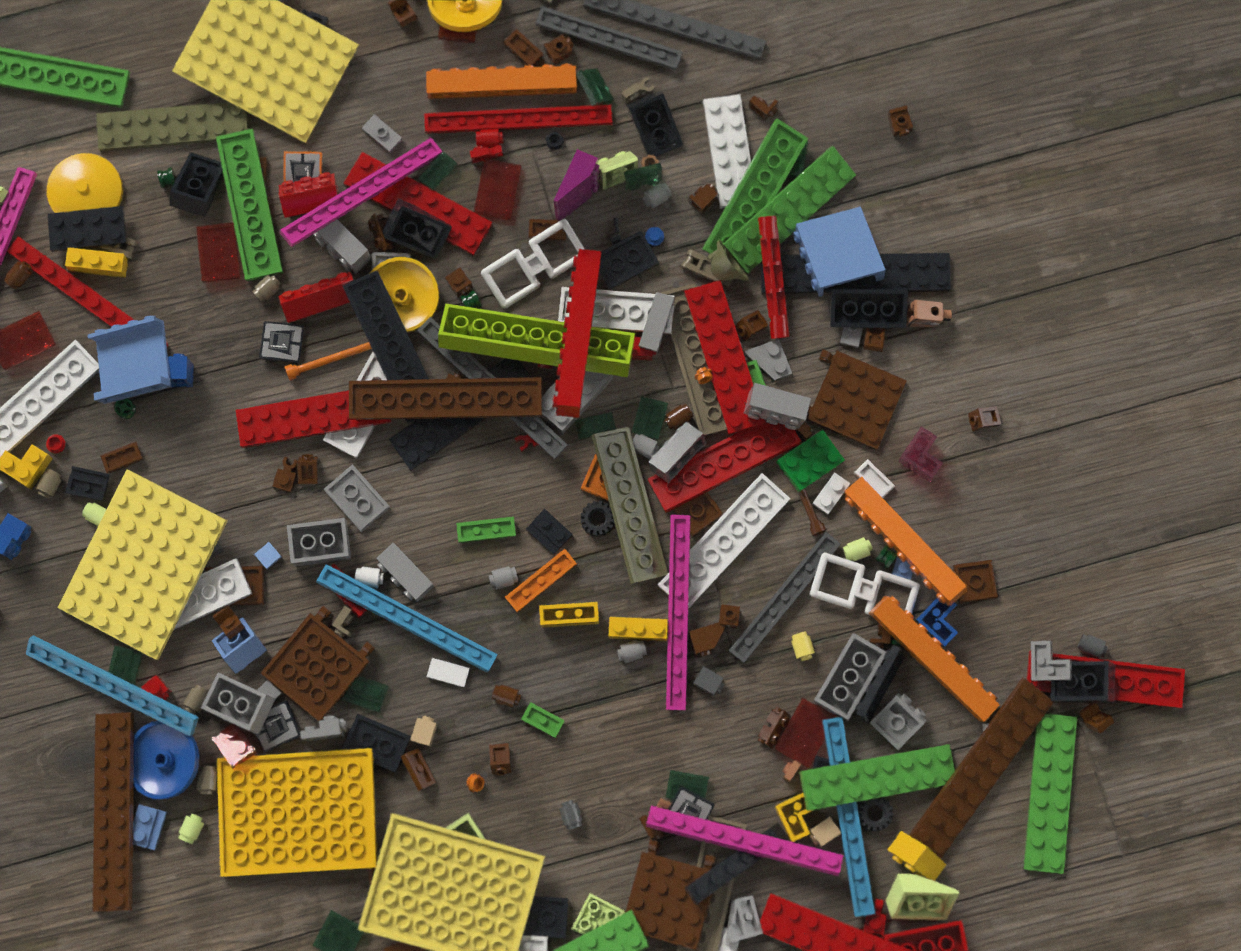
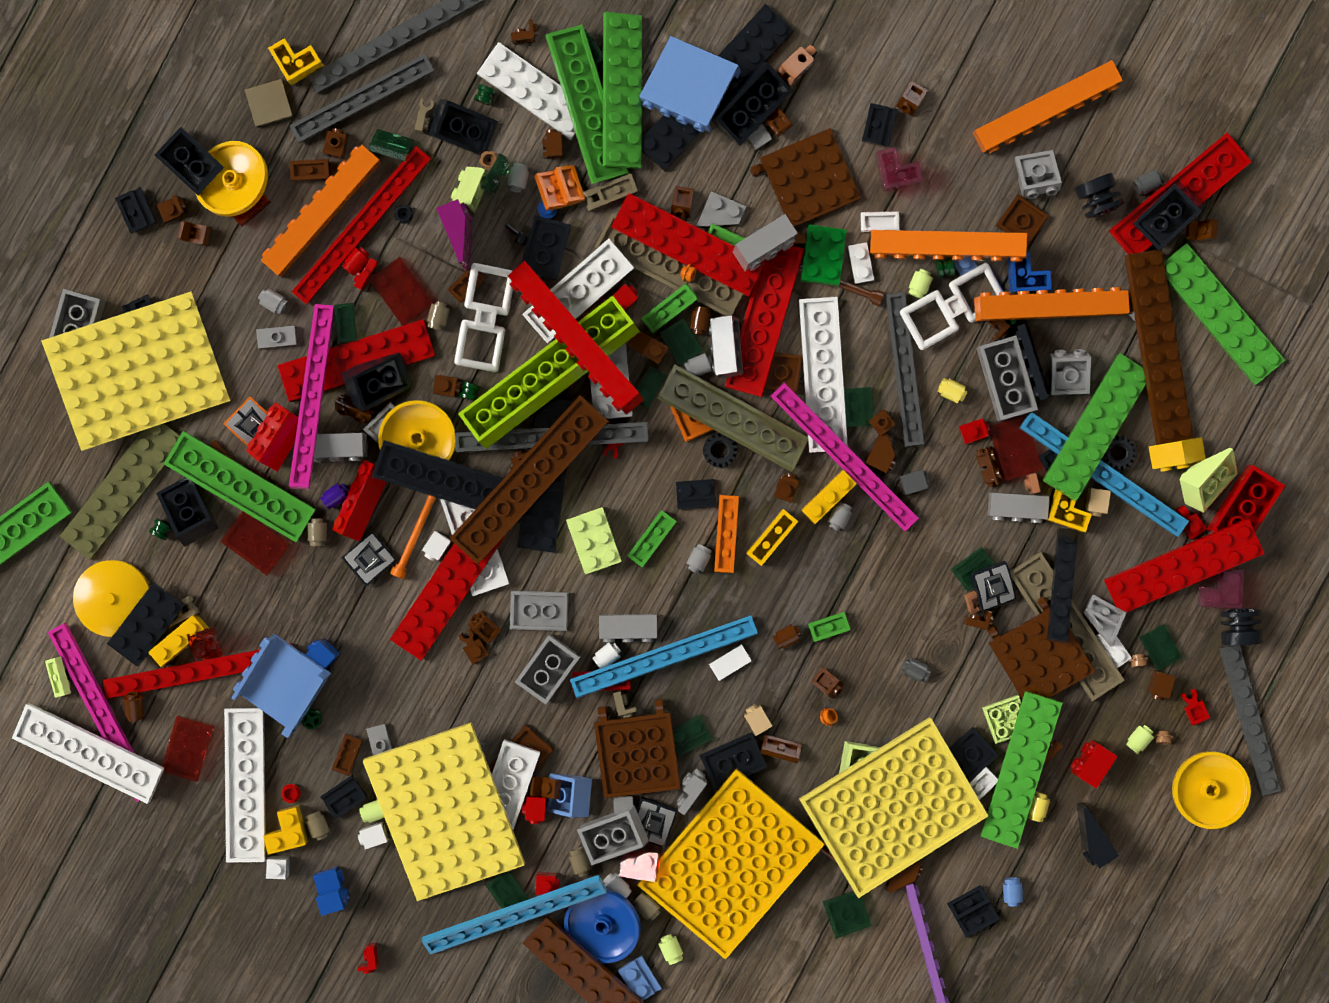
camera: 50 degrees left, 10 degrees up
(78, 530) = (373, 835): none -> white brick
(110, 282) = (205, 644): none -> clear red plate
(155, 469) = (379, 739): none -> light grey plate
(204, 743) = (617, 884): none -> white brick
(205, 629) = (534, 809): none -> red brick
(268, 555) = (521, 714): light blue tile -> none
(304, 276) = (335, 495): none -> dark purple brick
(335, 381) = (436, 546): none -> white brick
(405, 107) = (272, 301): none -> light grey brick
(445, 488) = (594, 540): none -> yellowish green brick
(504, 230) = (438, 316): none -> dark tan brick
(616, 592) = (786, 487): none -> reddish brown bracket
(623, 398) = (648, 347): none -> reddish brown slope
(656, 322) = (616, 270): light grey tile -> none
(666, 386) = (669, 307): none -> bright green plate
(678, 230) = (559, 187): none -> orange slope
(693, 119) = (485, 95): none -> dark green wheel
(724, 265) = (621, 179): olive hat -> none
(725, 588) = (858, 406): none -> clear green plate
(744, 841) = (1052, 565): dark pink plate -> none
(763, 776) = (1018, 507): none -> light grey brick
(773, 277) = (663, 151): red piece -> none
(788, 691) = (974, 430): none -> red bracket
(942, 413) = (879, 125): none -> black plate
(1019, 560) = (1038, 174): none -> light grey plate
(1045, 668) = (1133, 232): light grey plate -> none
(1048, 614) = (1099, 195): none -> black wheel
(1074, 521) = (1047, 107): none -> orange brick

